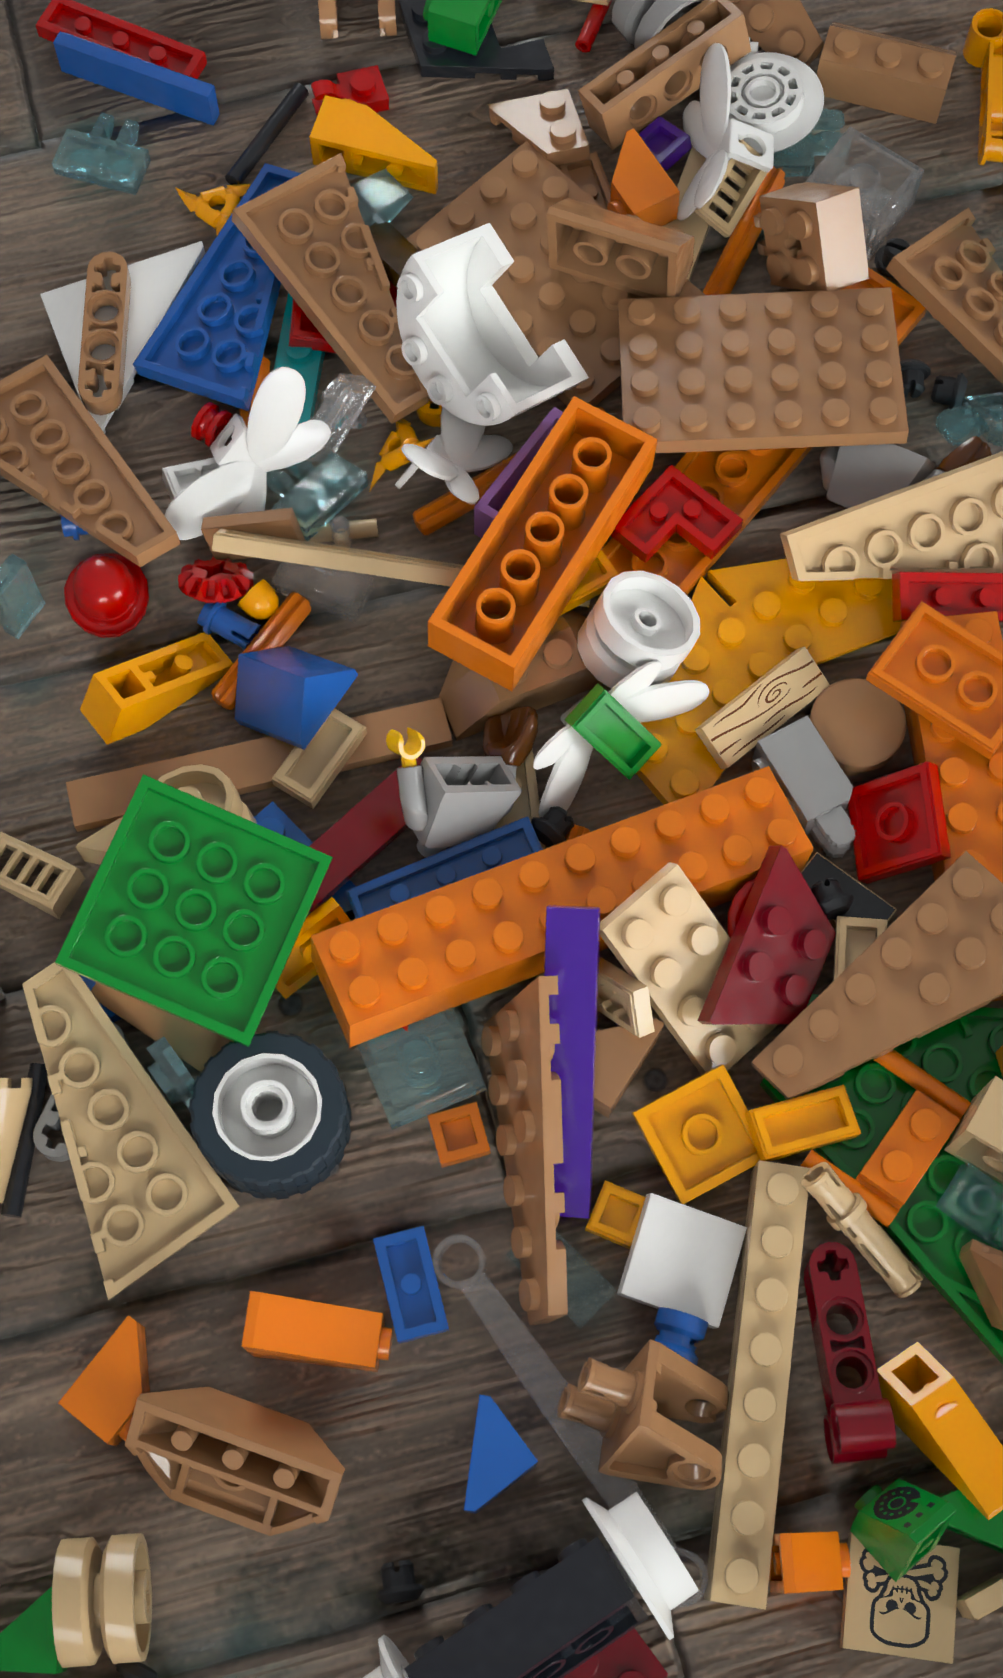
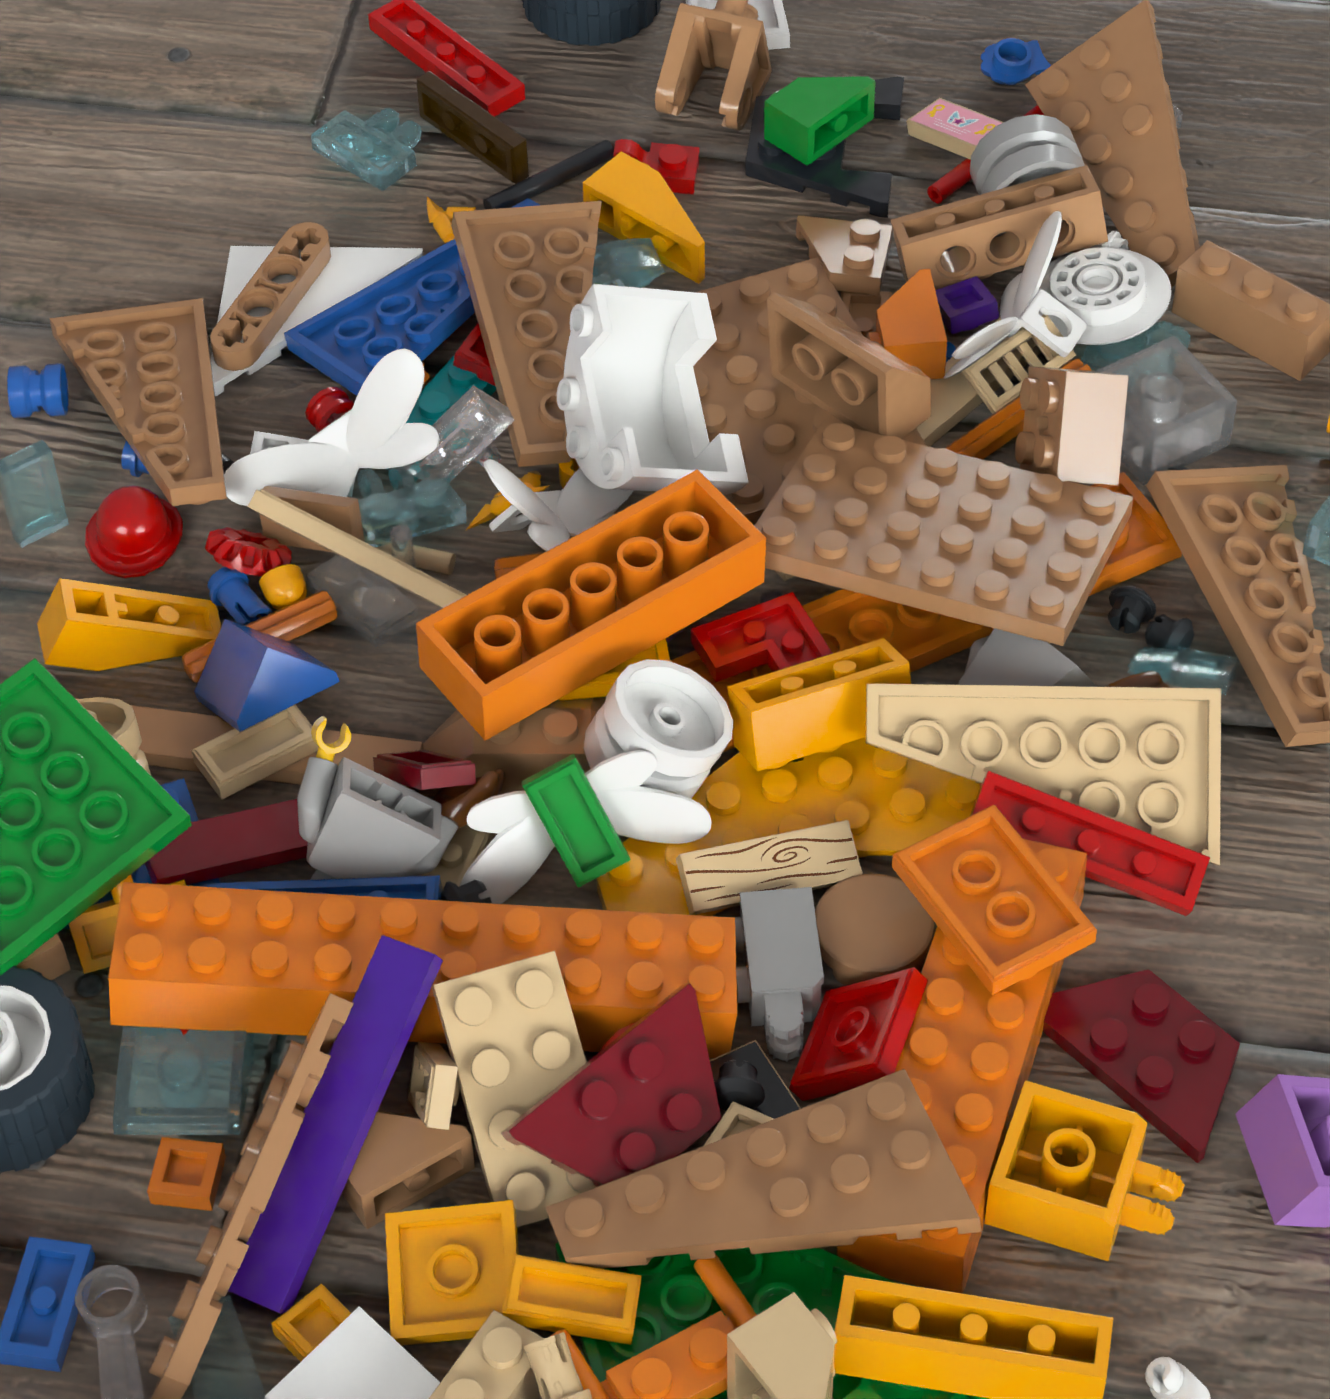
camera: 25 degrees right, 20 degrees down
(137, 78) = (407, 61): blue tile -> none
(182, 109) = (472, 127): none -> dark brown tile
(472, 731) = (425, 769): none -> dark red tile
(739, 556) = (810, 704): none -> light orange brick

